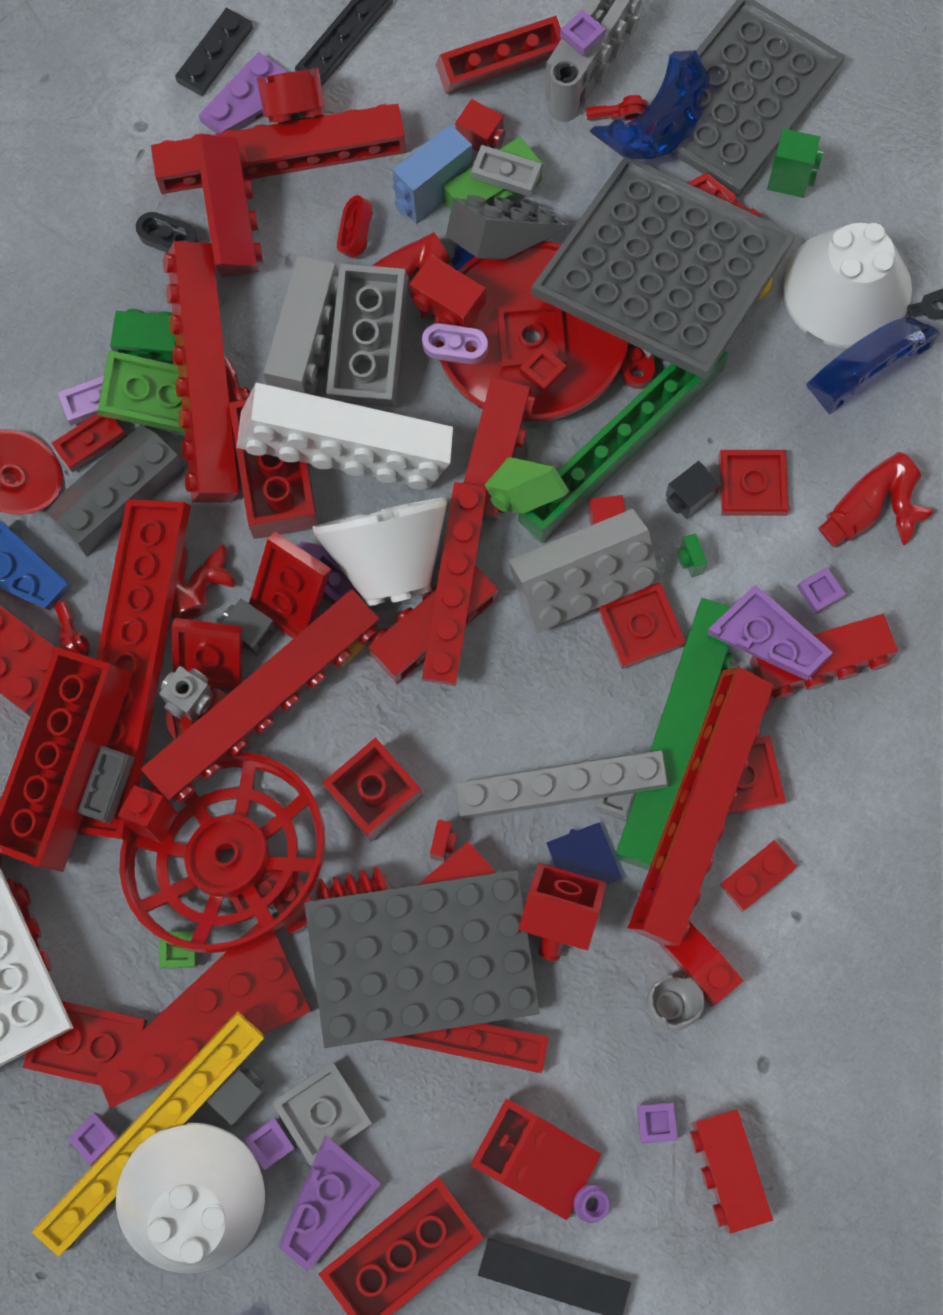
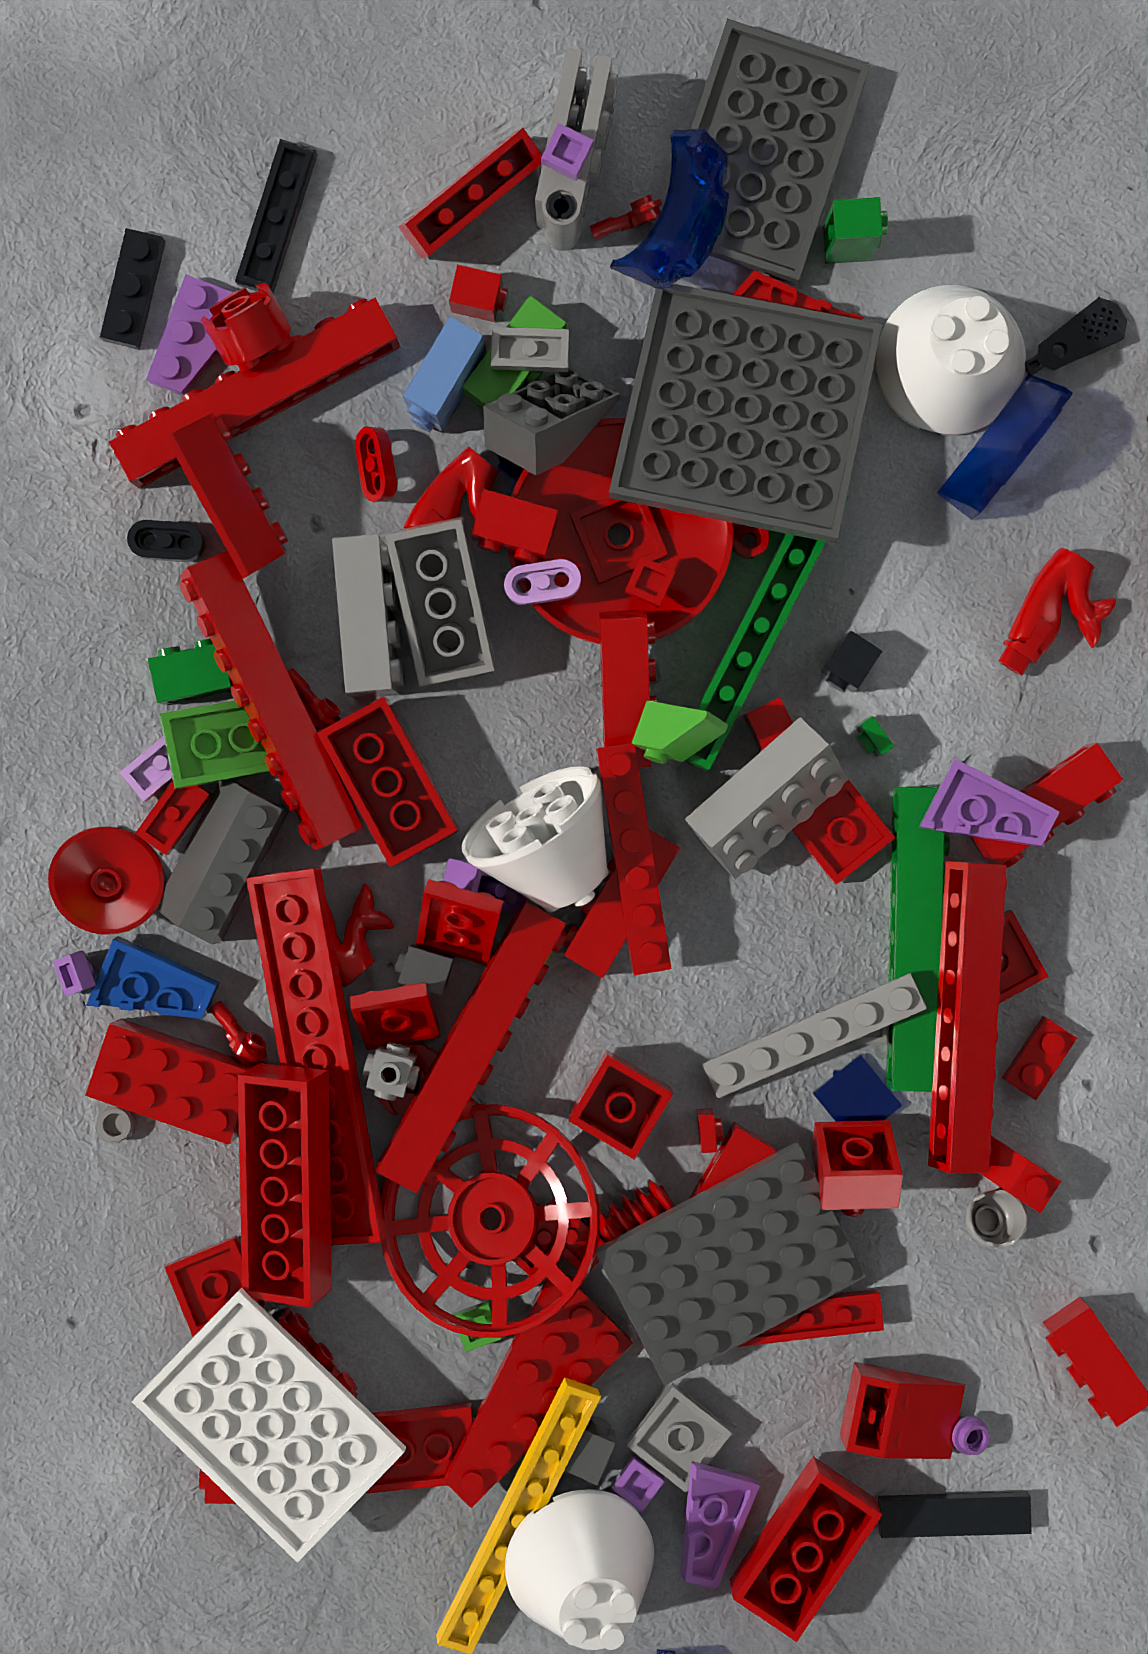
camera: 20 degrees left, 15 degrees up
(93, 1138) = (464, 1535): medium lavender plate -> none
(106, 785) = (344, 1195): dark grey plate -> none
(147, 814) = (398, 1210): red brick -> none
(344, 437) = (461, 739): white brick -> none
(657, 1123) = (1010, 1338): medium lavender plate -> none
(753, 483) = (912, 627): red tile -> none
(821, 590) = (1020, 731): medium lavender plate -> none

